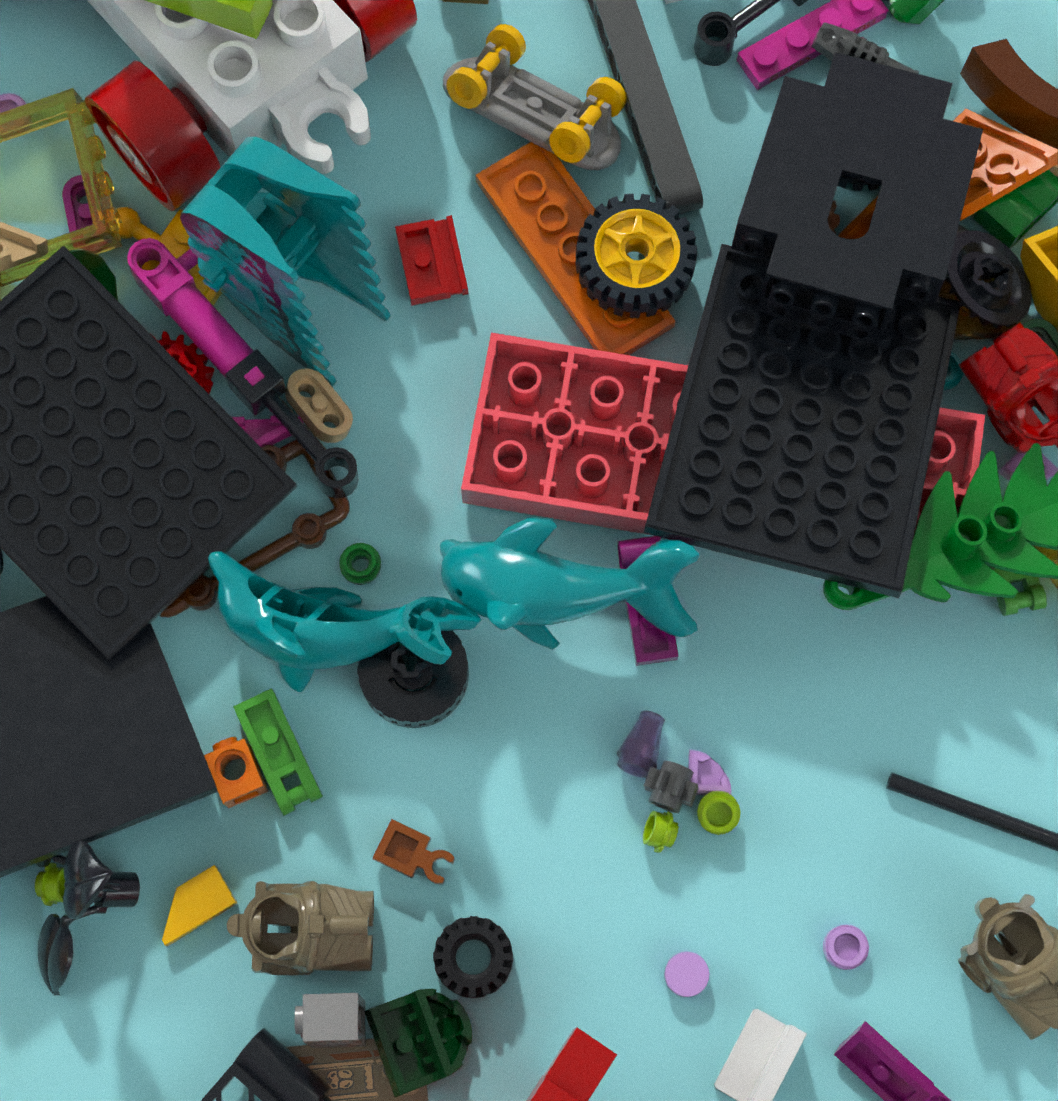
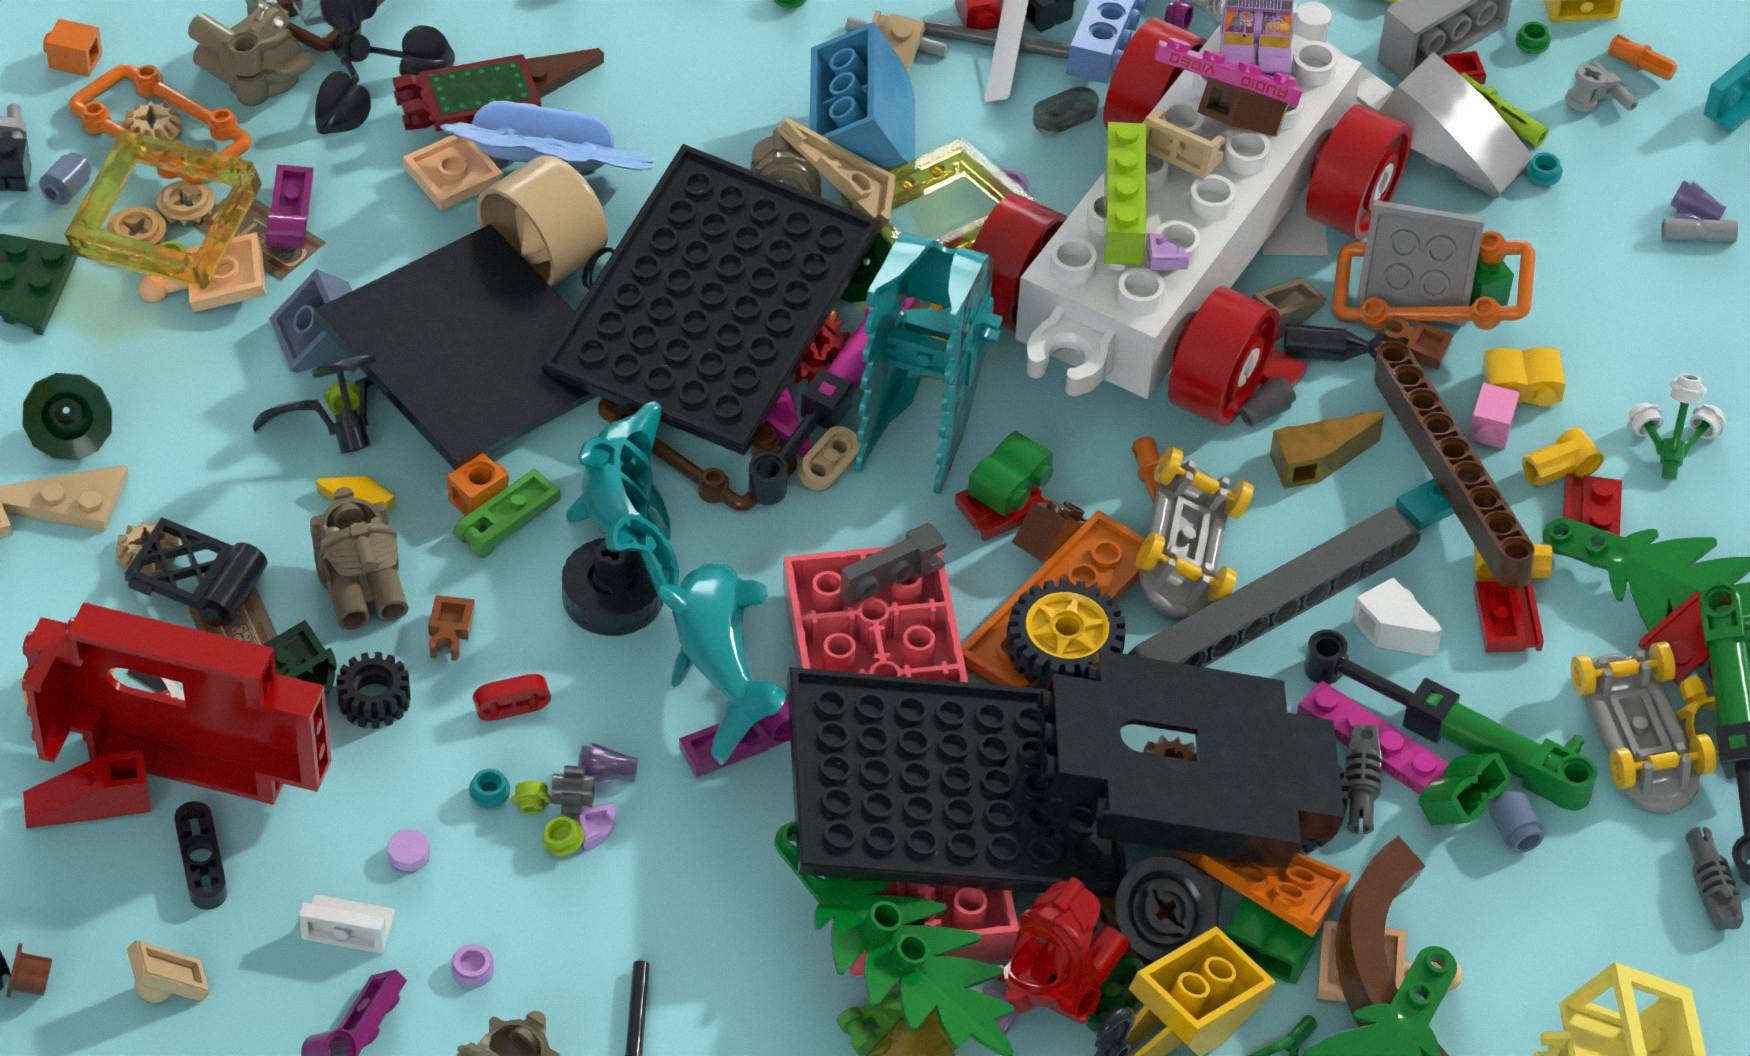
camera: 70 degrees right, 25 degrees down
(331, 1020) = (286, 590): light grey brick -> none
(355, 552) = (697, 526): green plate -> none
(417, 237) = (1011, 474): none -> green brick
(434, 110) = (1147, 458): none -> orange axle
(486, 225) = (1048, 528): none -> reddish brown slope
(515, 356) = (894, 564): none -> dark grey plate
(528, 815) = (511, 697): none -> red beam
(640, 857) = (489, 780): none -> teal plate

